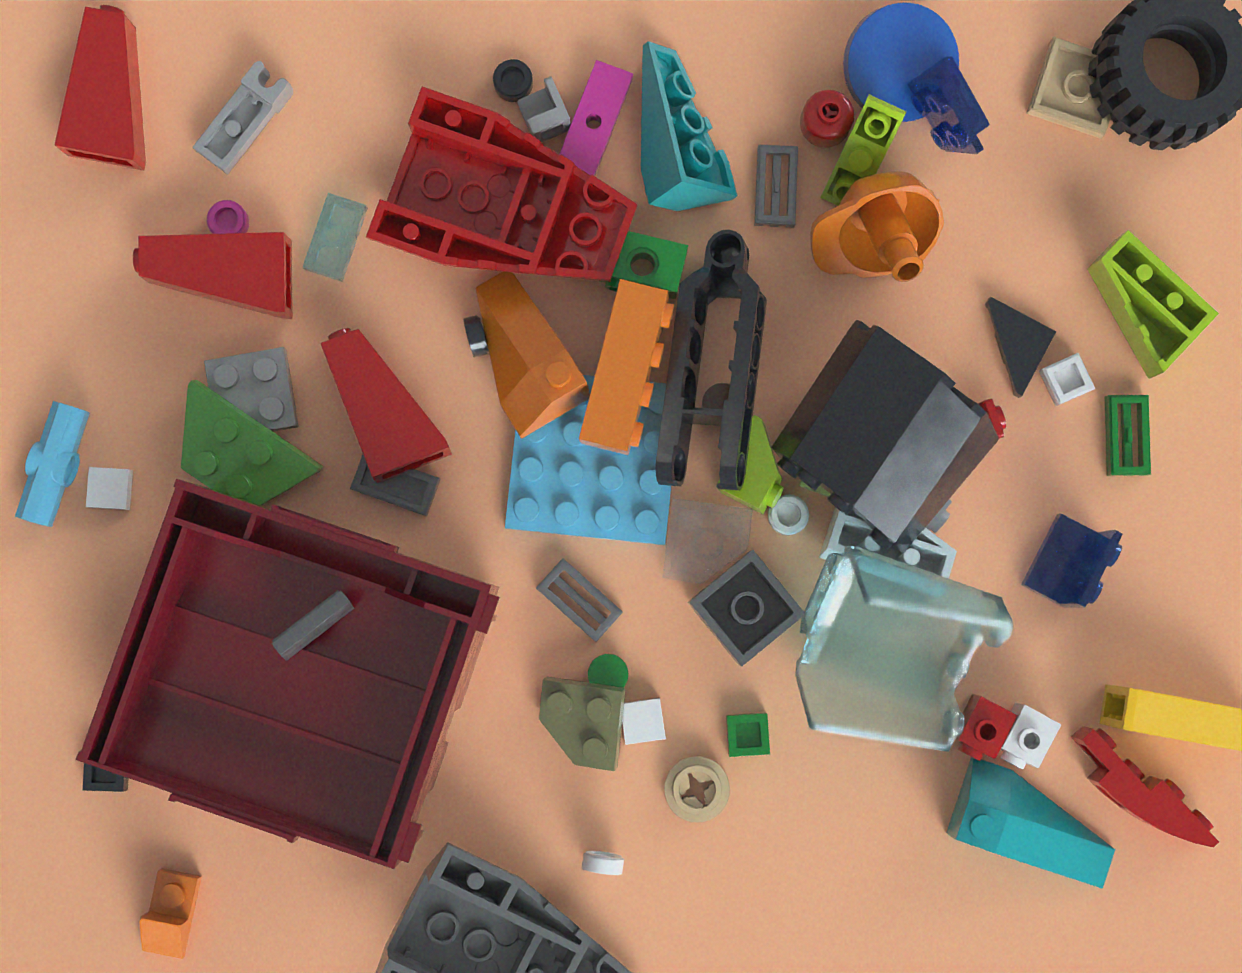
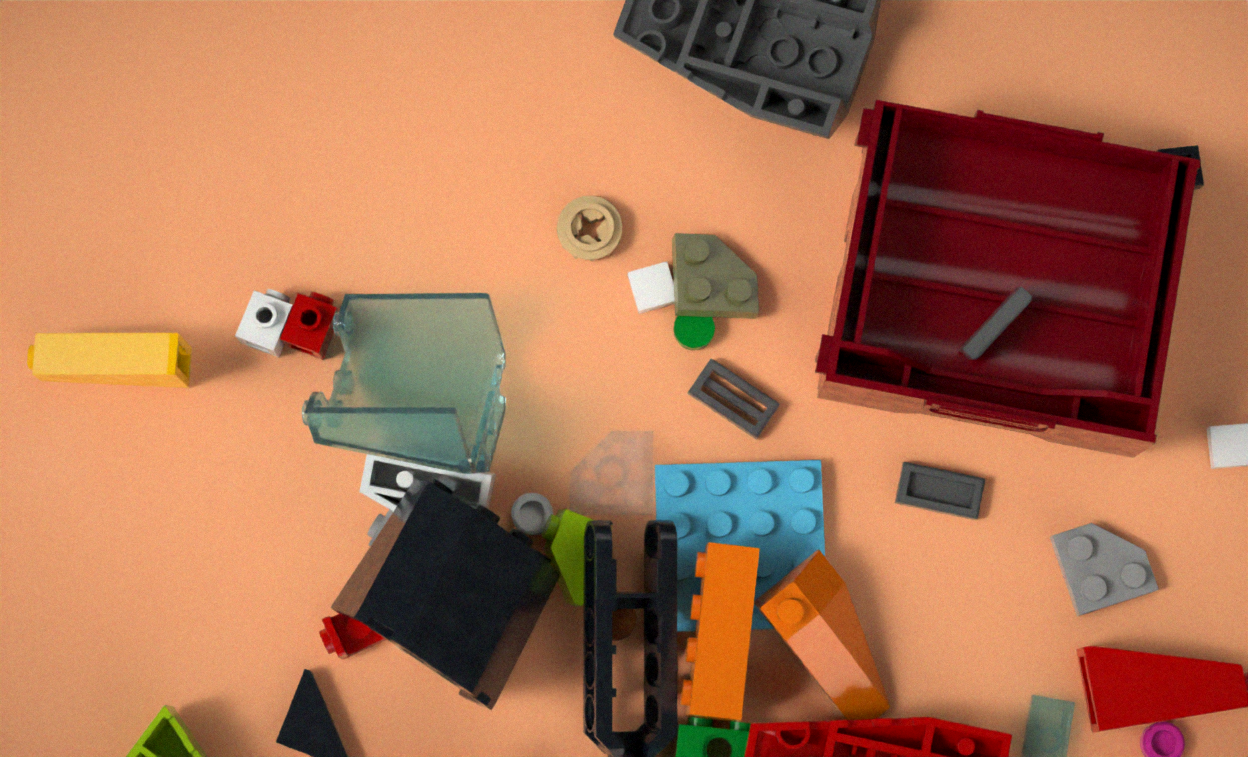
camera: 170 degrees right, 5 degrees down
(170, 913) = (1089, 42): orange slope -> none
(236, 451) = (1106, 499): bright green wing -> none
(383, 413) = (965, 559): red slope -> none
(476, 335) = (881, 653): black tile -> none
(603, 862) = (673, 144): white tile -> none
(746, 608) = (565, 409): dark grey brick -> none
(748, 734) = (545, 288): green tile -> none
(1019, 822) = (267, 238): teal wedge -> none
(1066, 379) = (258, 694): white tile -> none
(1072, 563) = (237, 501): clear blue bracket -> none
(1143, 432) = (206, 644): green tile -> none
(1150, 801) = (135, 274): red slope -> none

